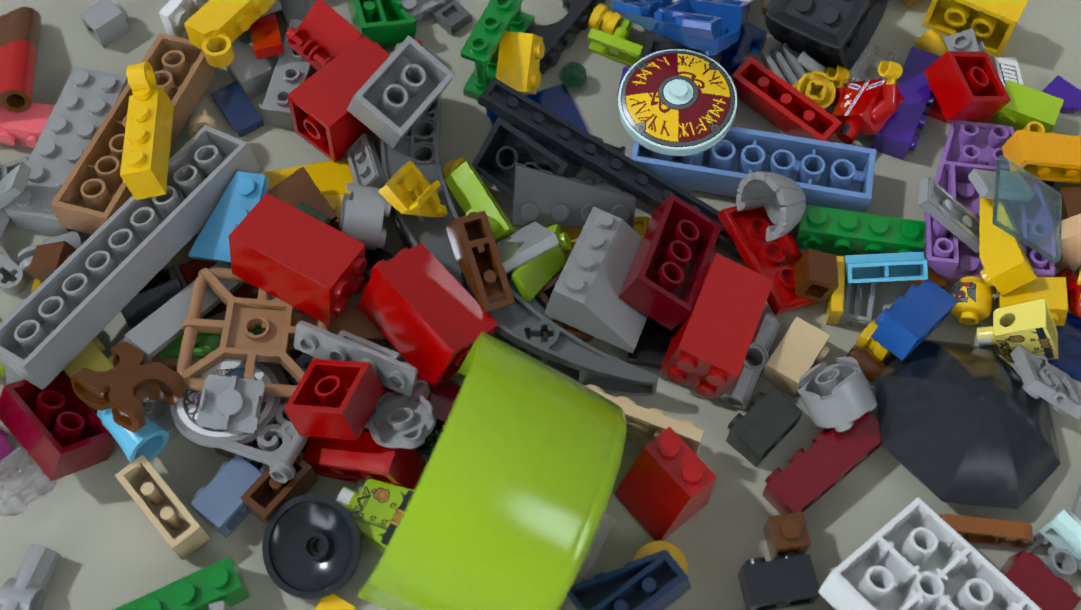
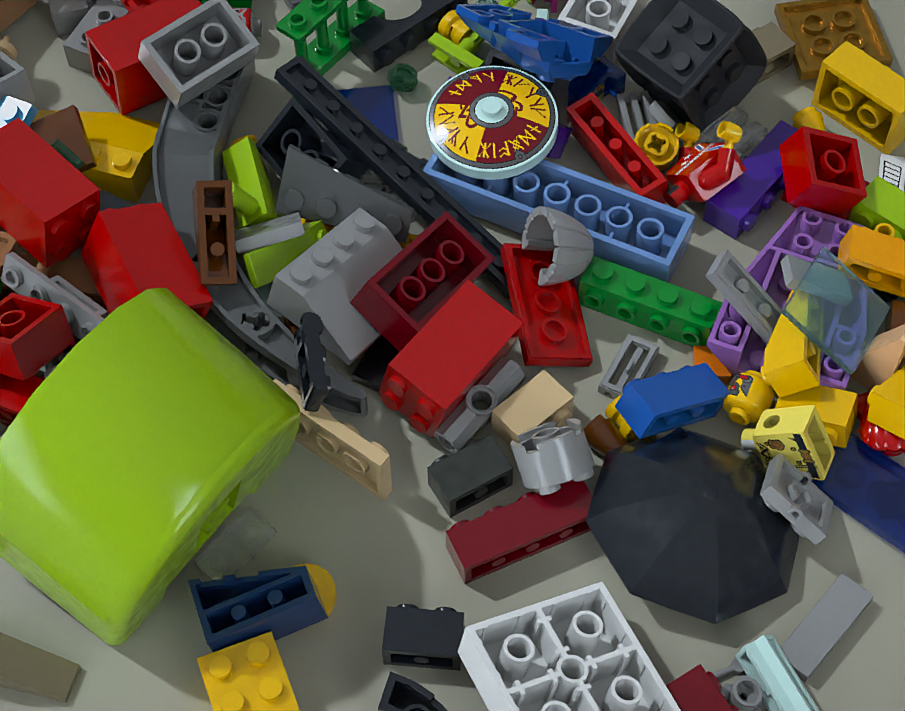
camera: 15 degrees right, 5 degrees down
(237, 109) = (43, 43): dark blue tile -> none
(363, 215) = (117, 165): light grey brick -> none
(365, 162) = (145, 122): light grey tile -> none
(412, 193) = (172, 152): yellow slope -> none
(520, 61) = (344, 51): yellow brick -> none
(607, 361) = (311, 361): none -> black hinge
(666, 485) = (336, 507): red slope -> none
(787, 534) = (451, 587): reddish brown brick -> none
(816, 275) = (581, 332): reddish brown brick -> none
(835, 302) = (601, 355): yellow tile -> none
(885, 267) = (661, 341): medium azure piece -> none
(964, 41) = (848, 126): light grey bracket -> none
(991, 531) = (675, 640): dark orange beam -> none

